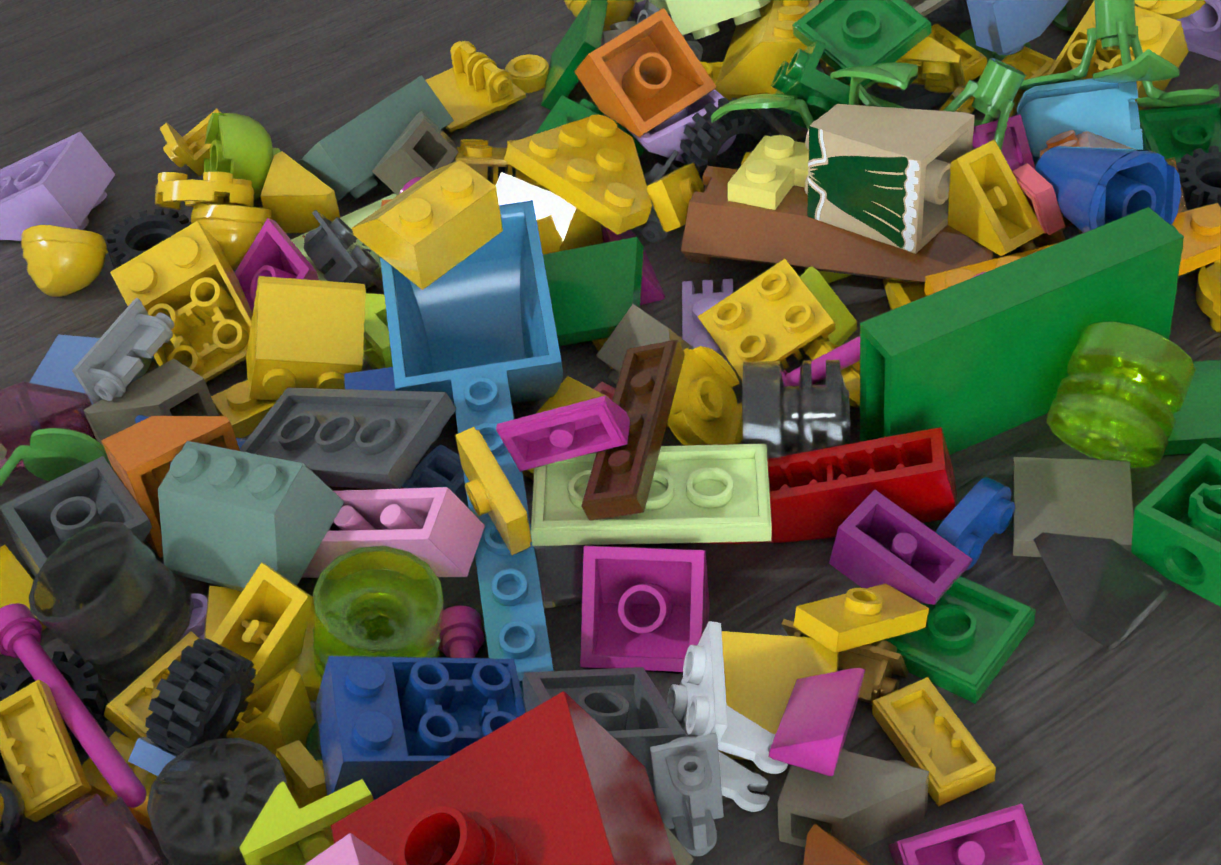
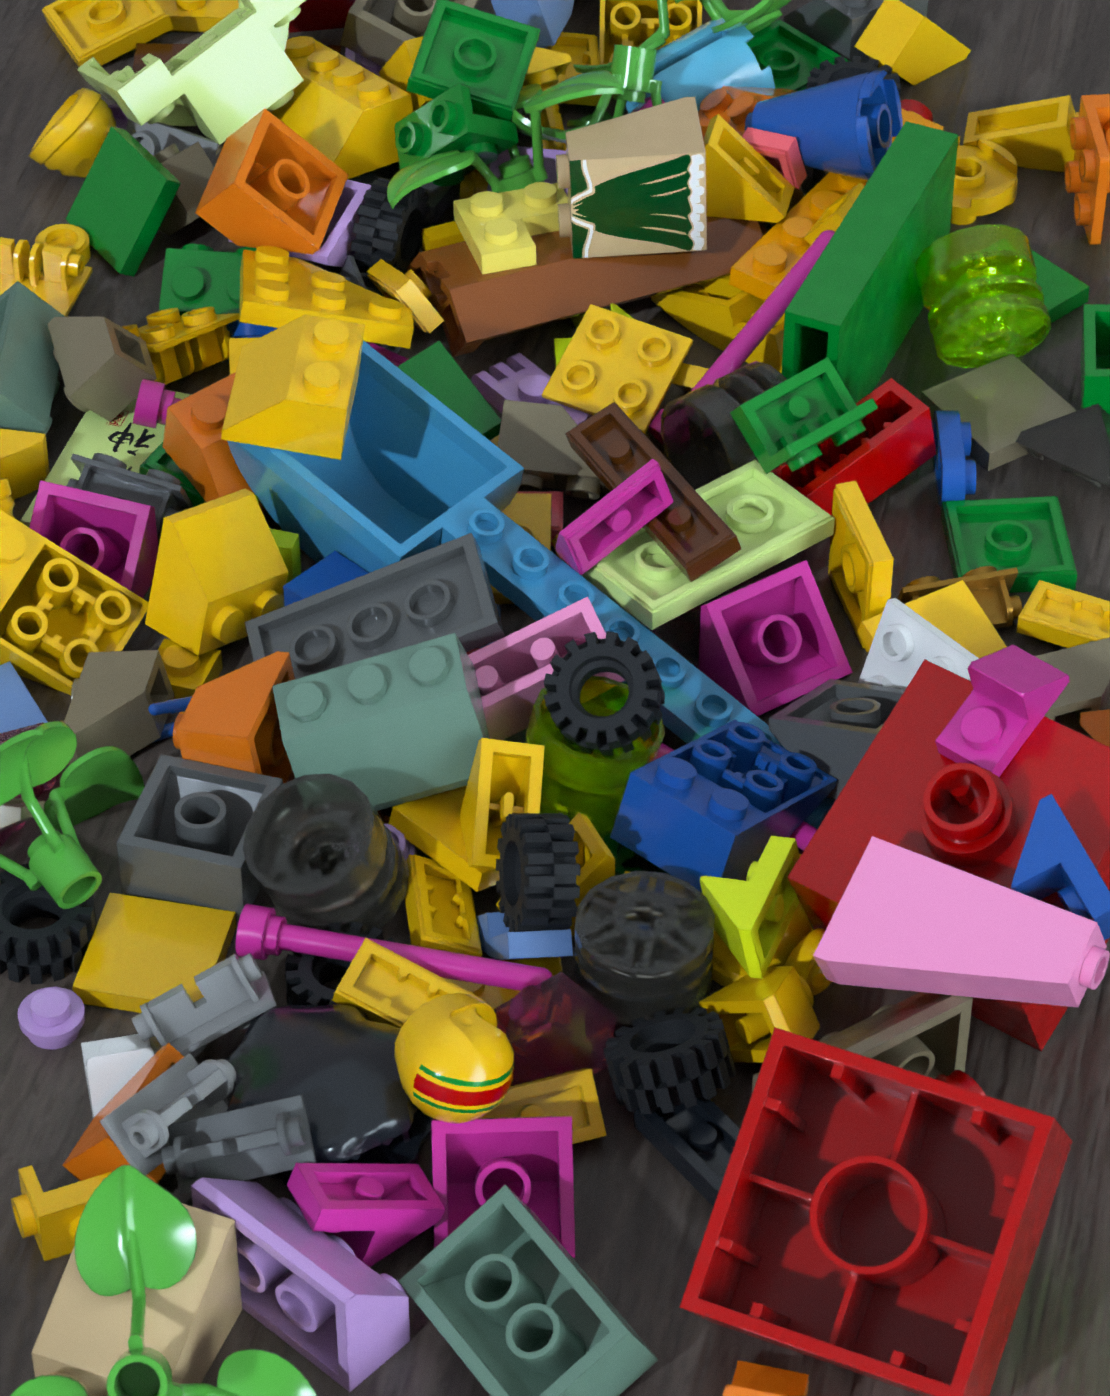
camera: 45 degrees left, 0 degrees up
(119, 352) = (46, 645): light grey hinge -> none
(404, 591) = (600, 656): none -> black tyre
(491, 491) = (616, 595): yellow plate -> none
(569, 774) = (1003, 709): none -> dark pink slope
(769, 571) = (858, 557): none -> yellow tile
(815, 422) = (800, 415): none -> green bracket
(817, 720) = (1026, 622): dark pink slope -> none
(860, 617) = (960, 556): yellow plate -> none
(892, 547) = (931, 501): magenta slope -> none

